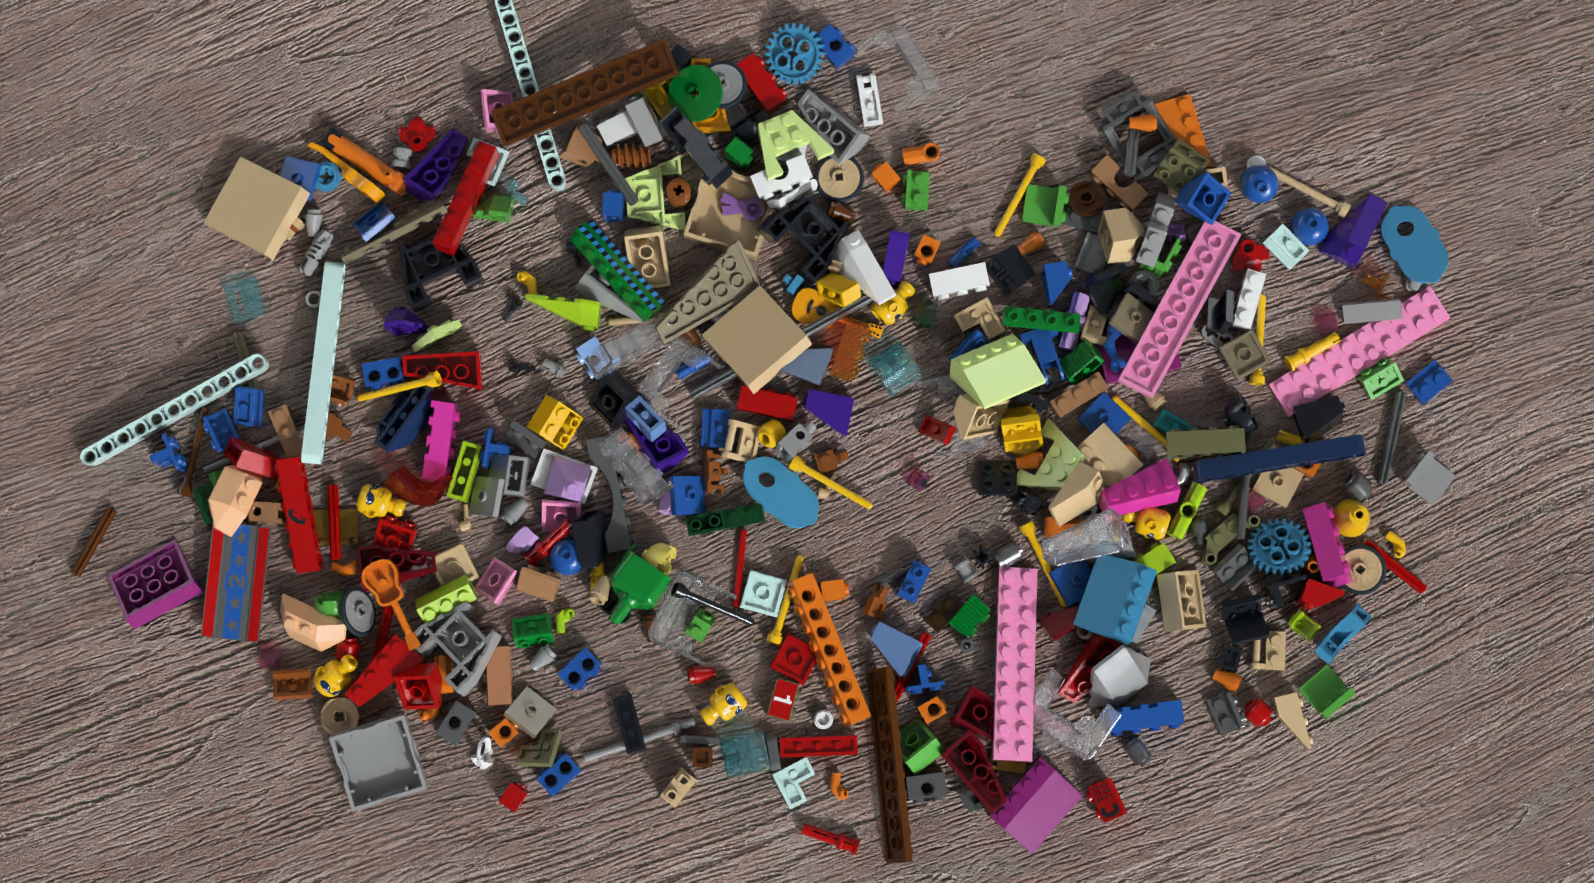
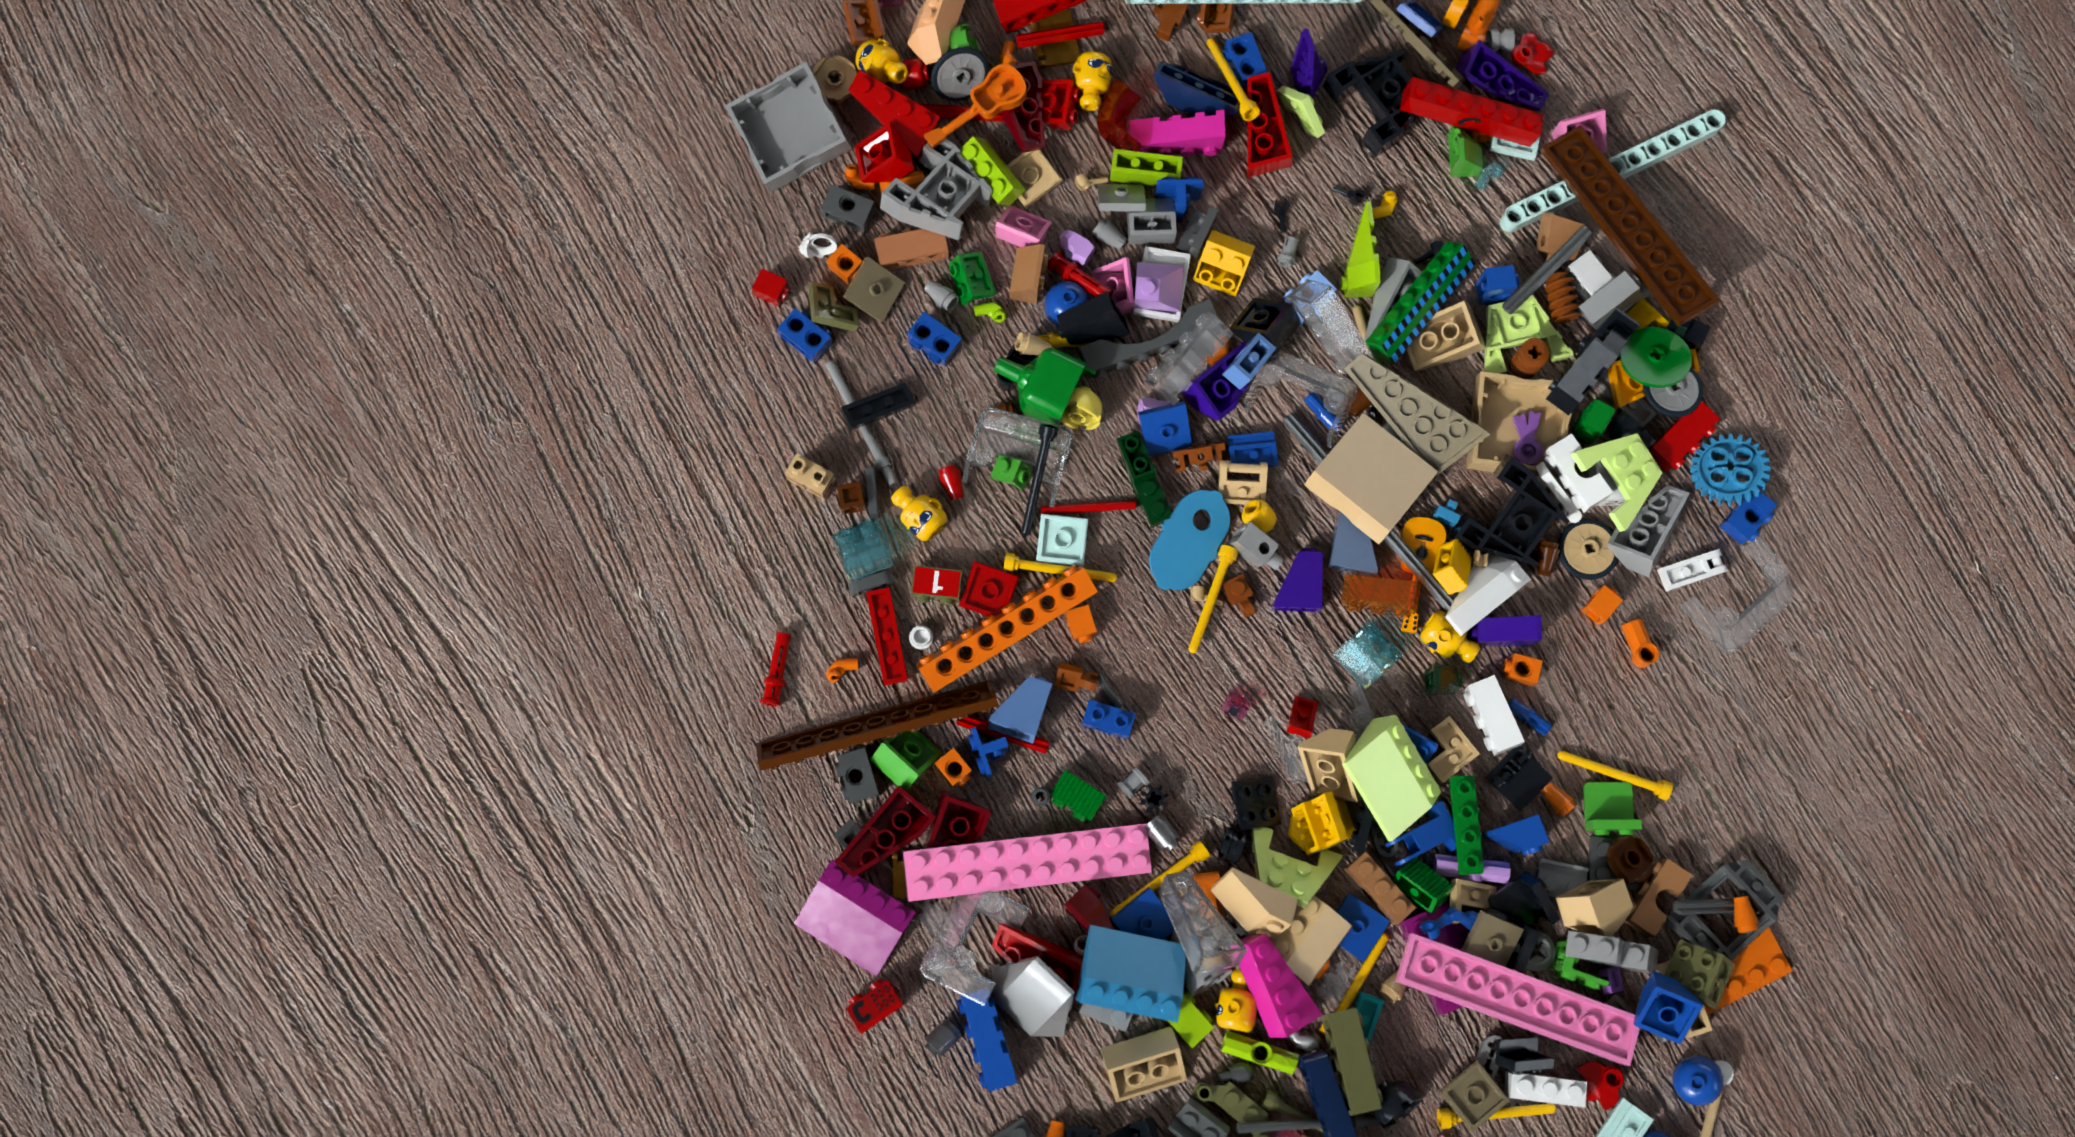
camera: 75 degrees right, 5 degrees down
(768, 403) = (1294, 508): red brick -> none
(789, 779) = (839, 607): light aqua plate -> none
(916, 190) = (1593, 645): bright green bracket -> none
(943, 612) = (1076, 763): dark brown plate -> none
(1029, 461) = (1285, 840): orange cone -> none

